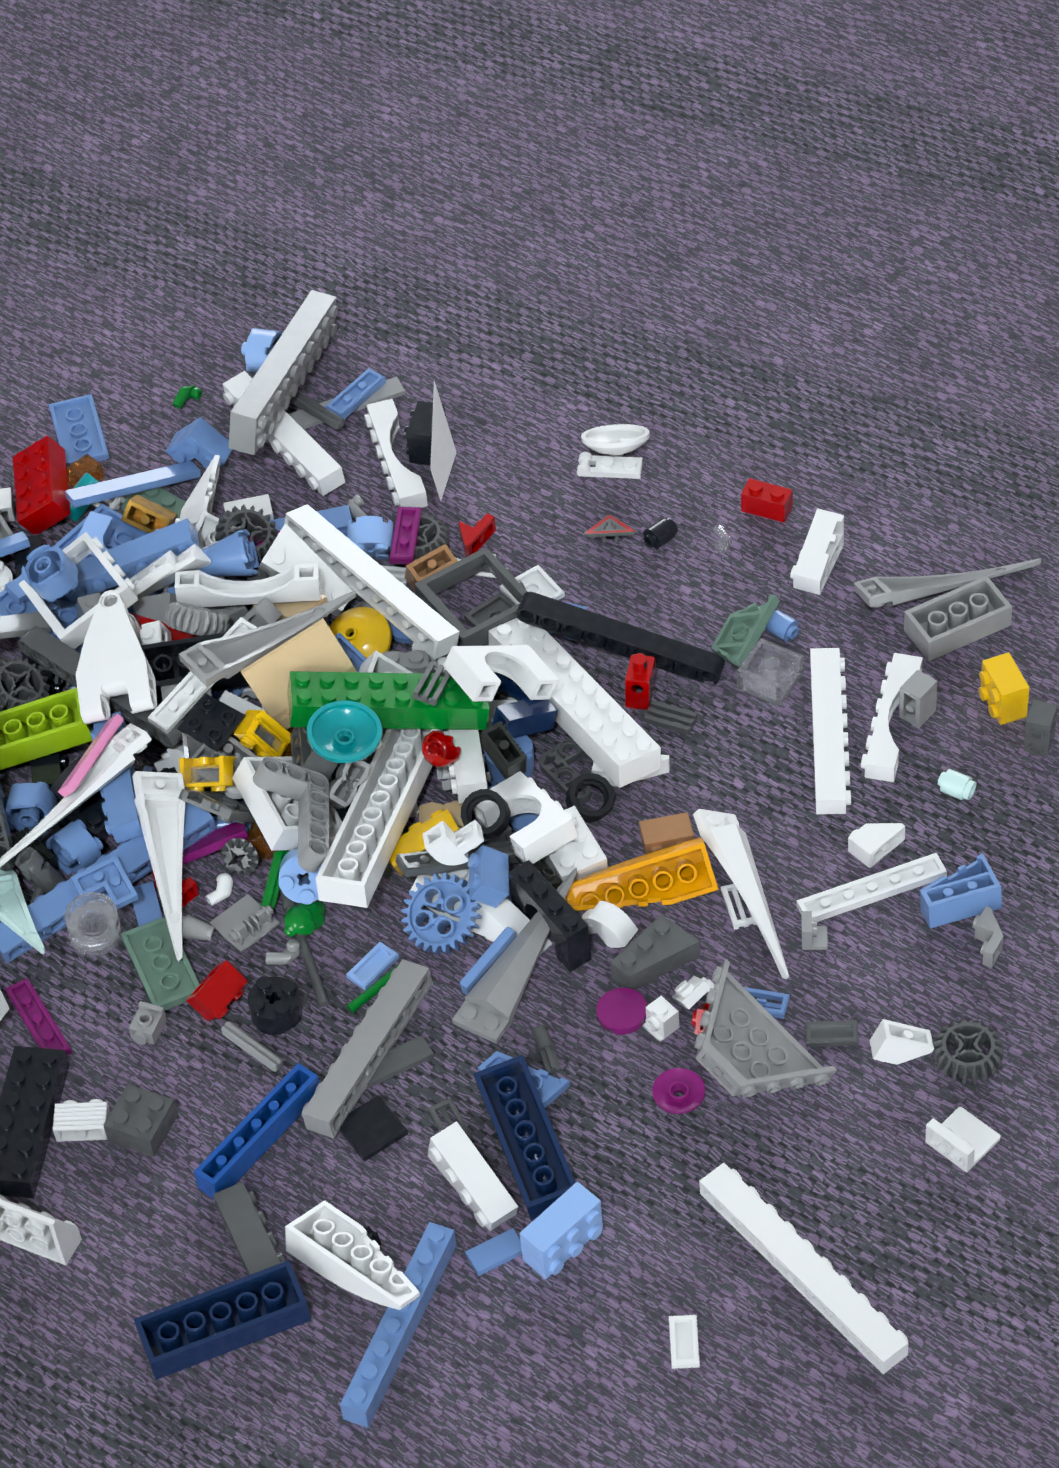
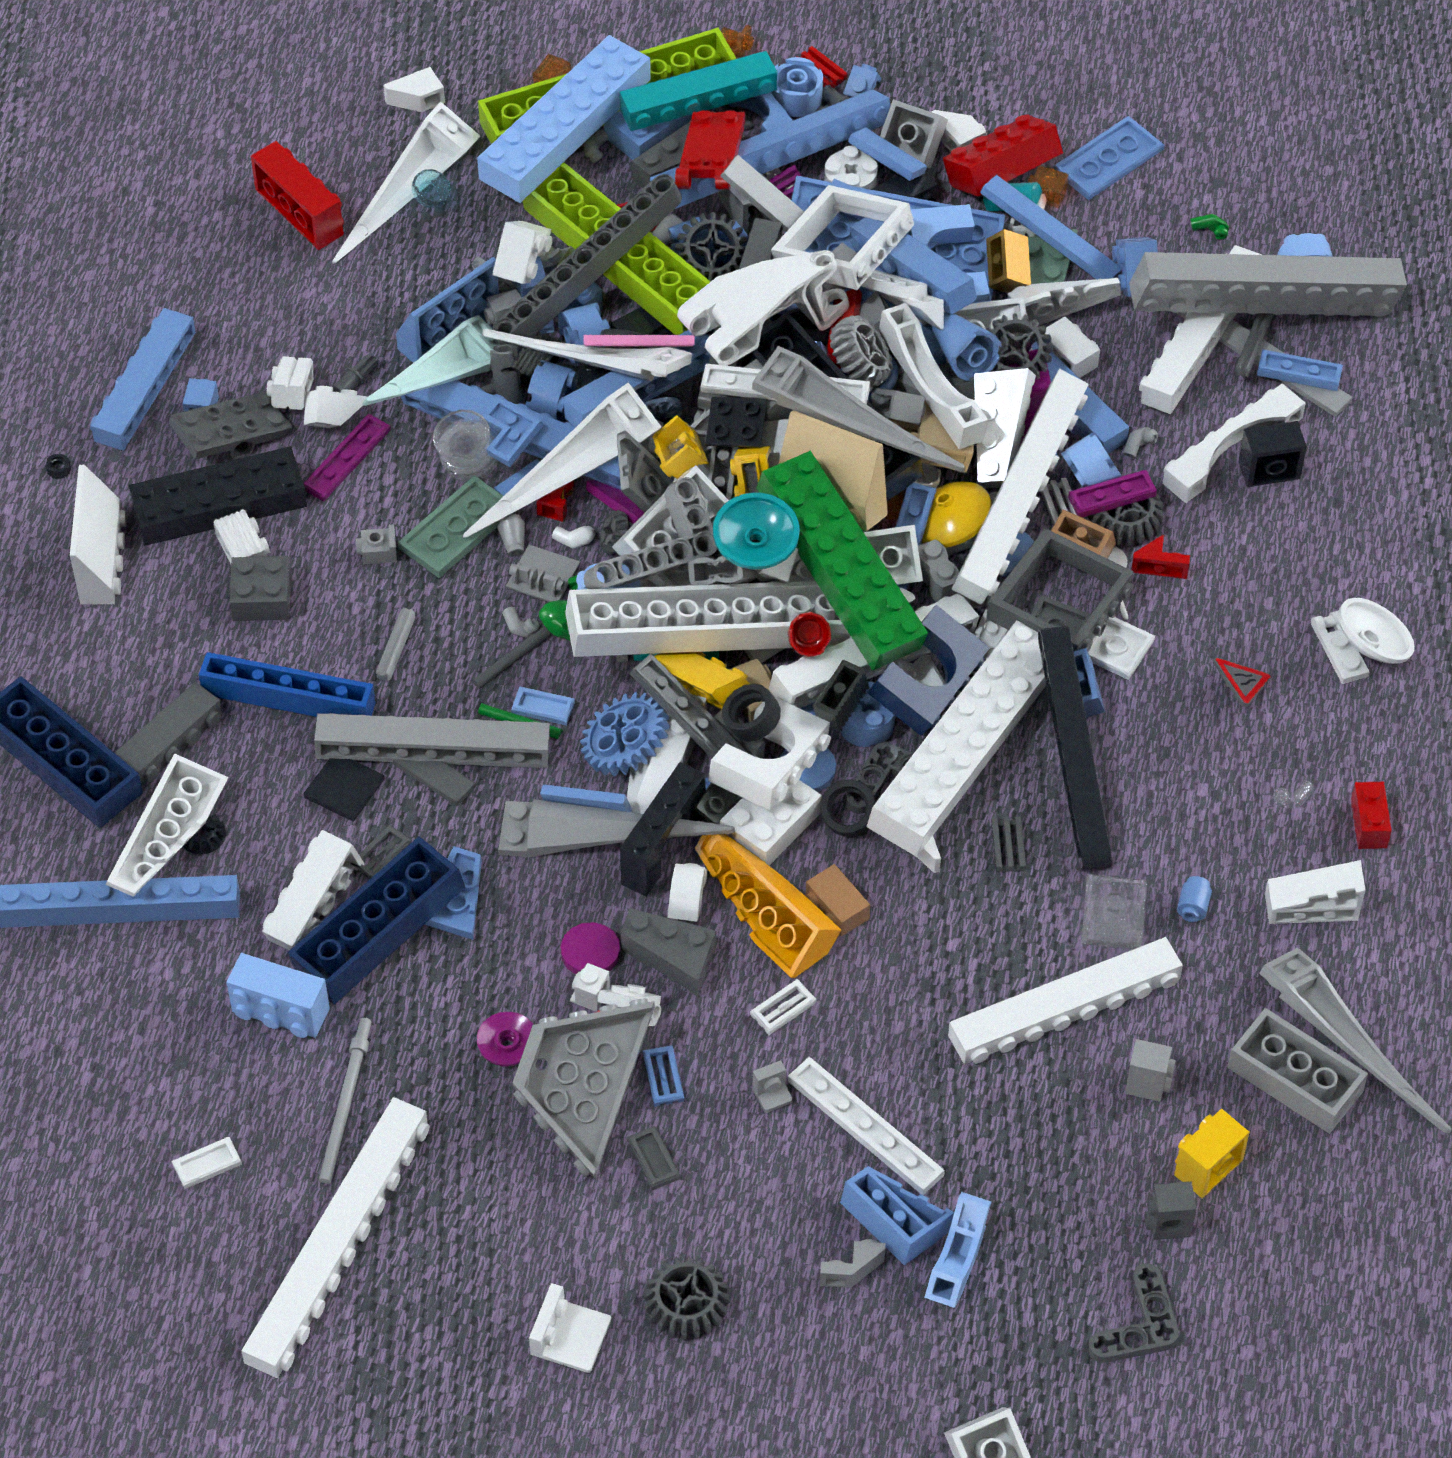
camera: 60 degrees right, 5 degrees up
(50, 572) = (837, 197): medium blue brick -> none
(154, 633) = (815, 321): white brick -> none
(217, 991) = (439, 584): red brick -> none
(274, 1005) = (446, 639): black brick -> none
(438, 671) = (872, 581): dark grey tile -> none
(442, 446) = (1258, 474): white sticker -> none
(452, 847) = (685, 694): white brick -> none
(475, 668) = (964, 655): white arch -> none
(488, 876) = (665, 751): medium blue brick -> none
(494, 1252) = (233, 943): medium blue tile -> none
(546, 1049) = (507, 899): dark grey axle -> none
(632, 1198) = (358, 1049): none -> light grey bar
(640, 672) = (1033, 792): red torso -> none
(660, 533) = (1265, 731): black brick -> none
(734, 853) = (843, 966): white plate -> none
(743, 631) = (1159, 863): sand green wing -> none
(875, 841) = (929, 1104): white slope -> none
(883, 754) = (1058, 1066): white arch -> none
(900, 1042) = (663, 1226): white slope -> none
(957, 784) = (1054, 1158): light aqua brick -> none
(1023, 879) = (960, 1250): none -> light blue arch

